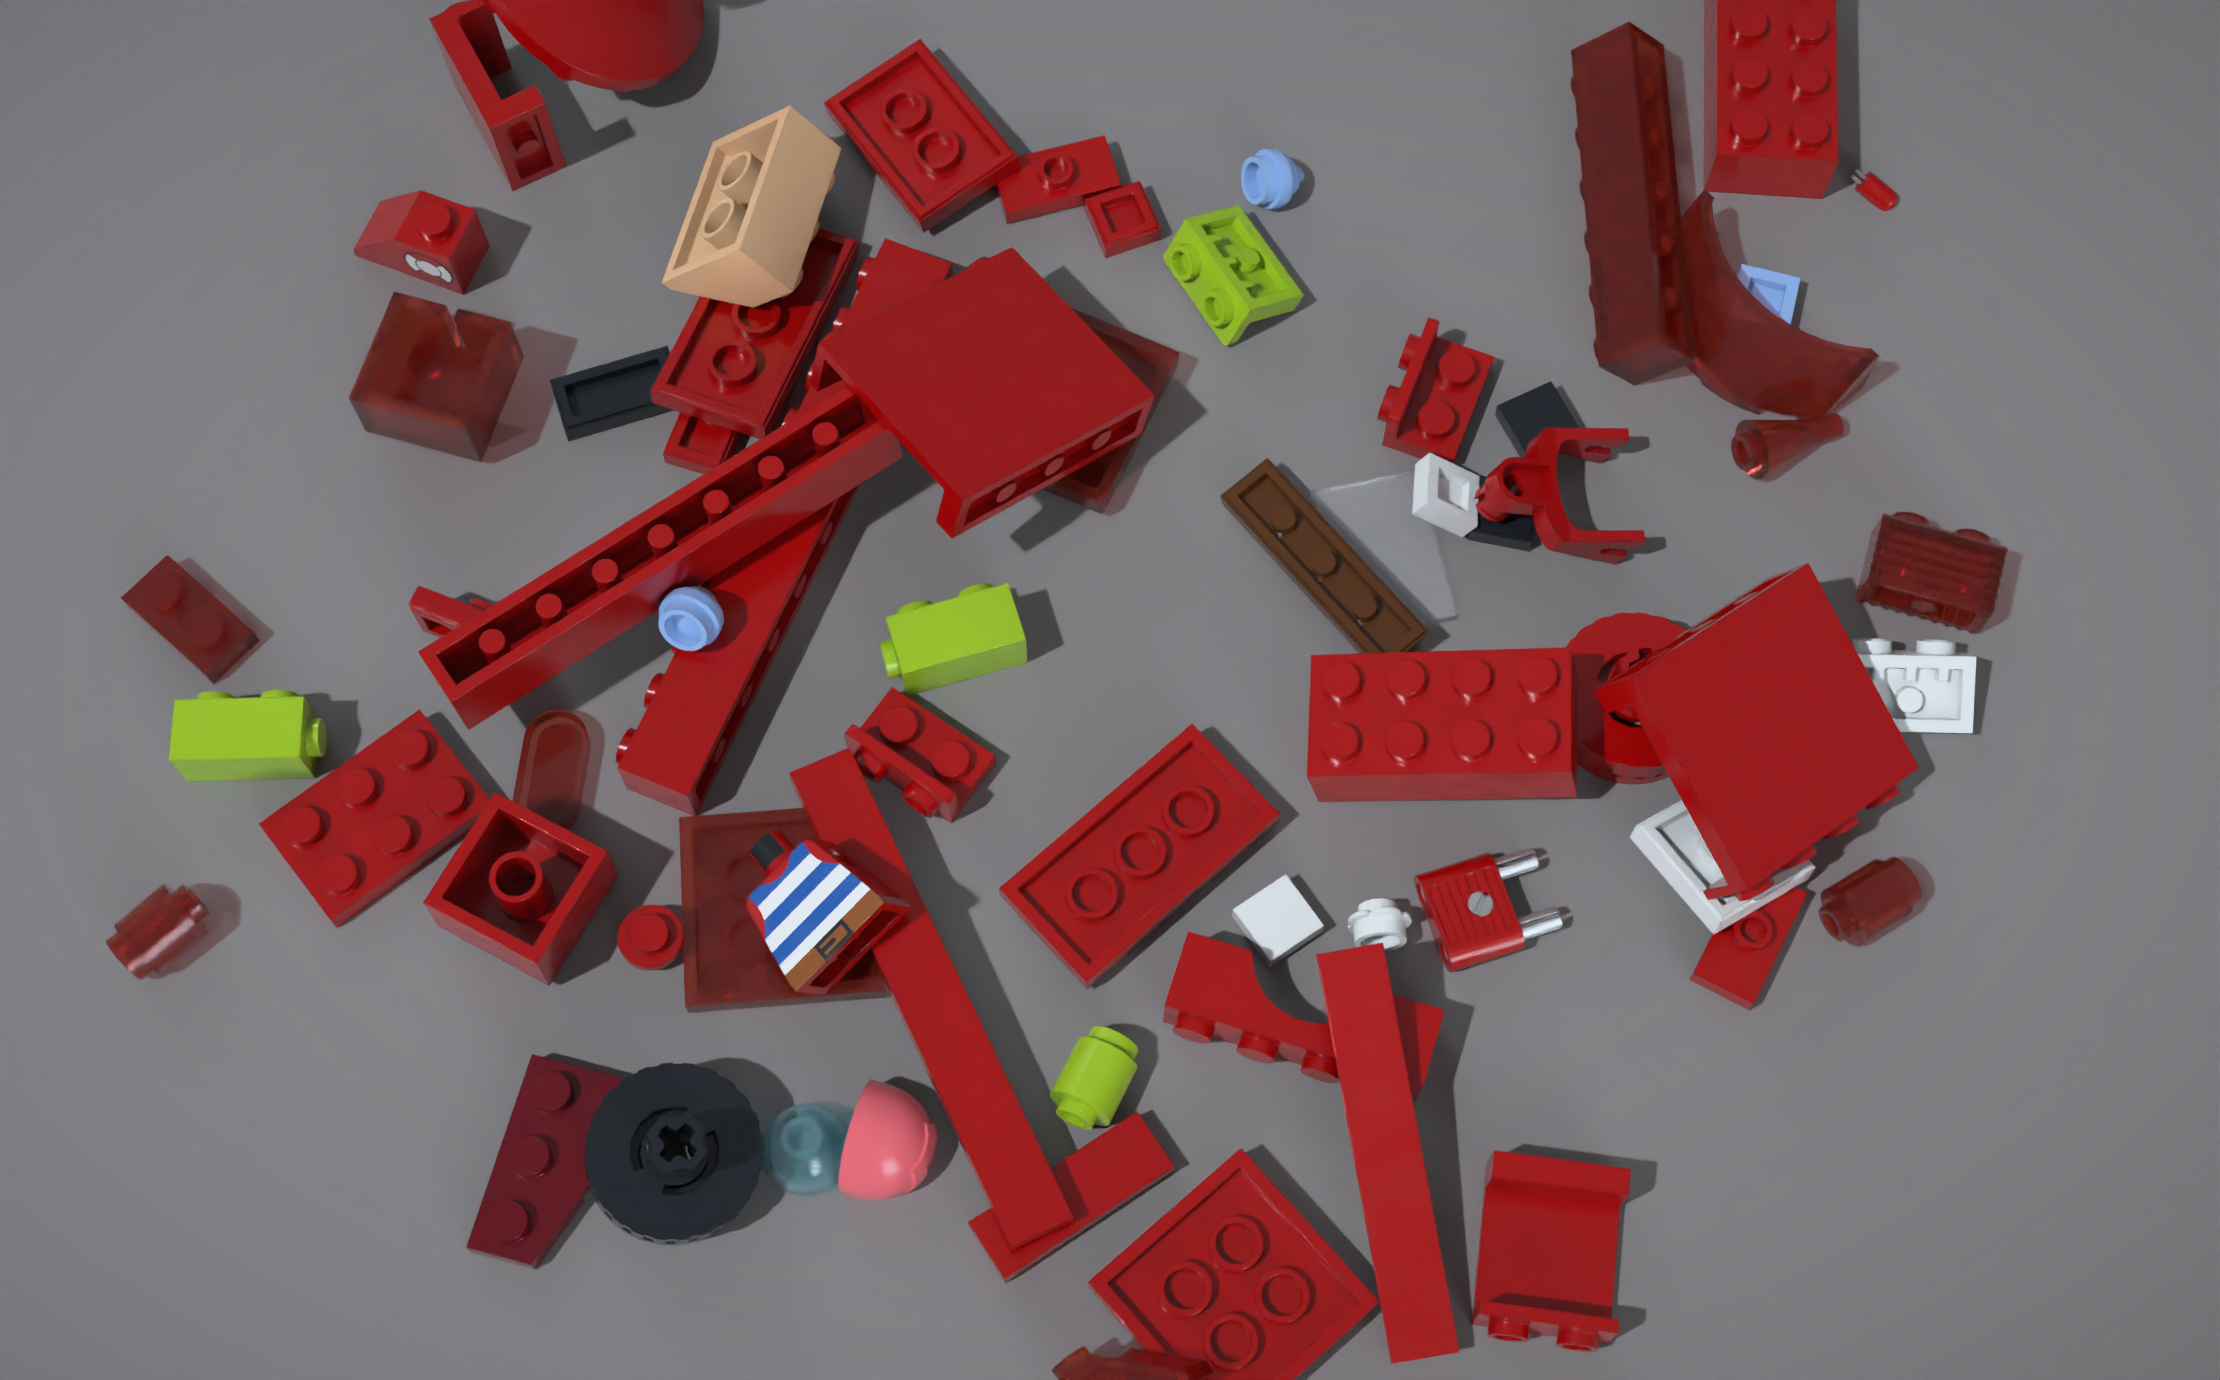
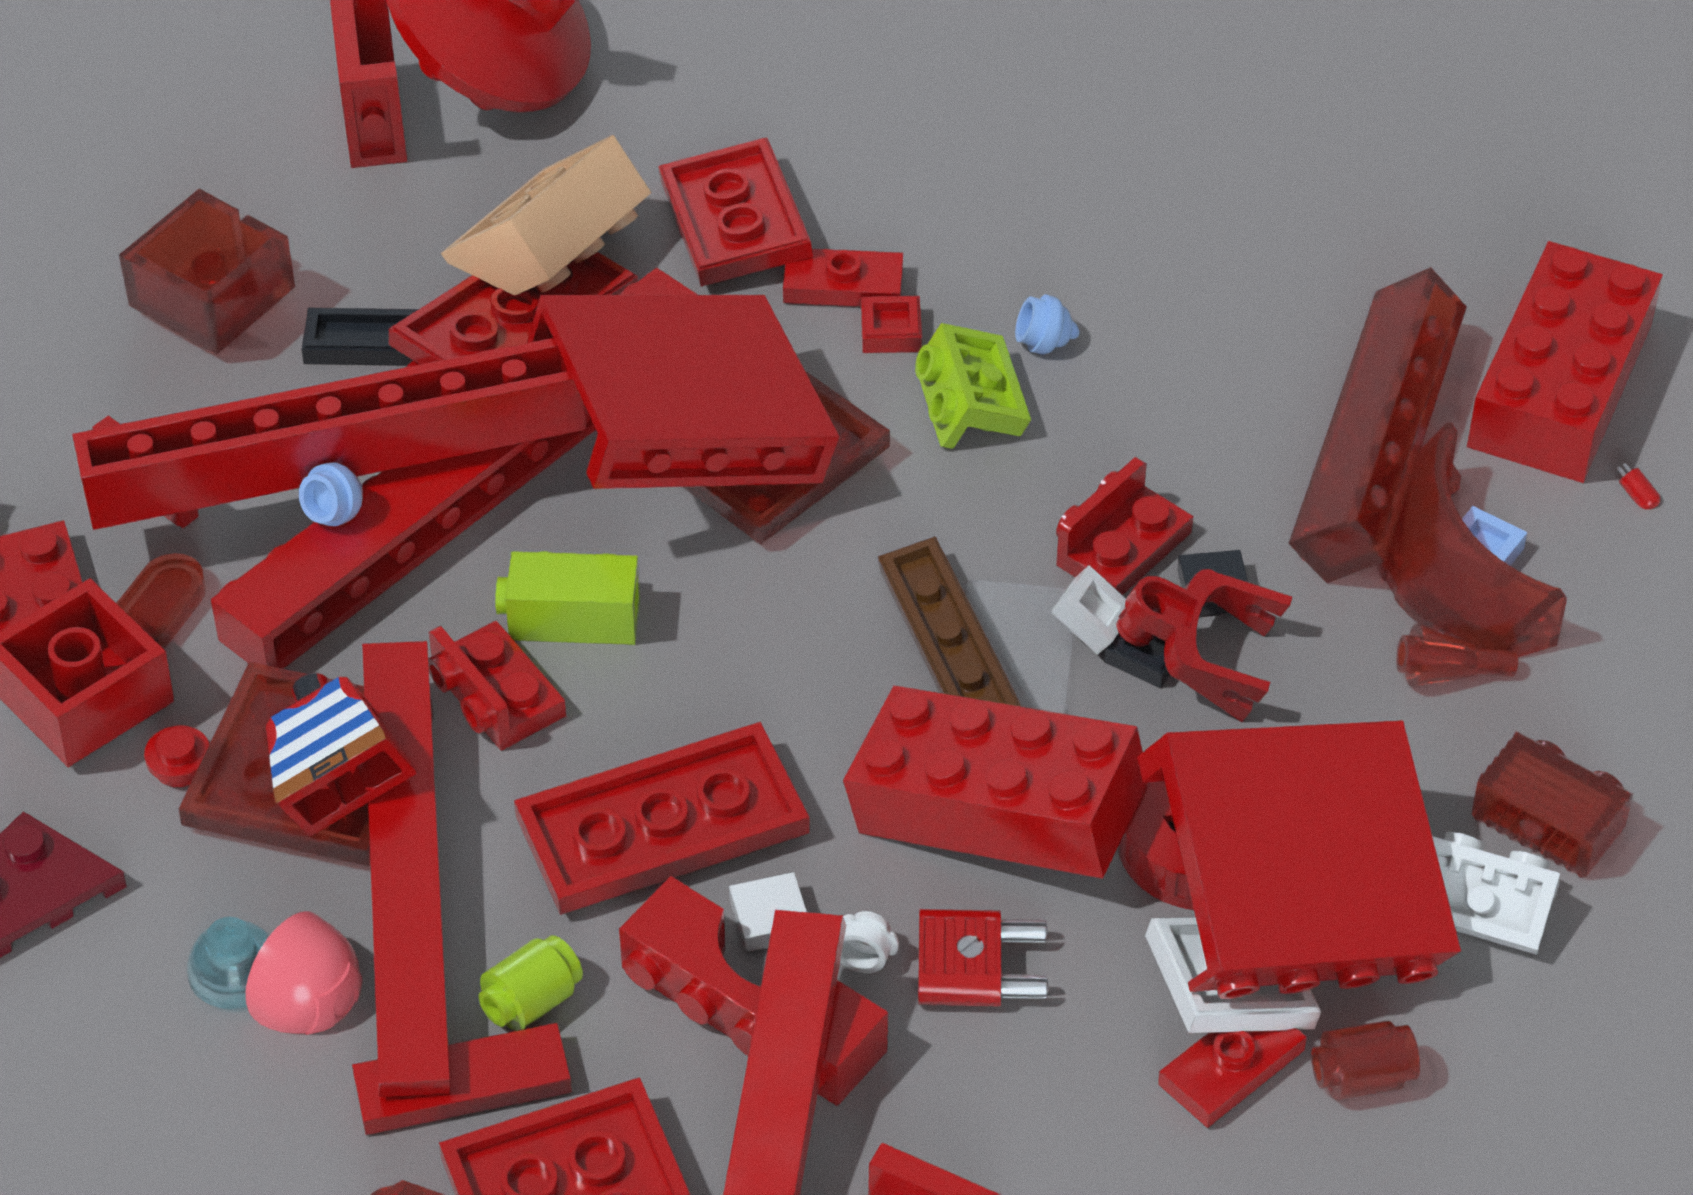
camera: 20 degrees right, 20 degrees down
(425, 239) = (257, 176): red slope -> none
(683, 1105) = (97, 892): black piece -> none

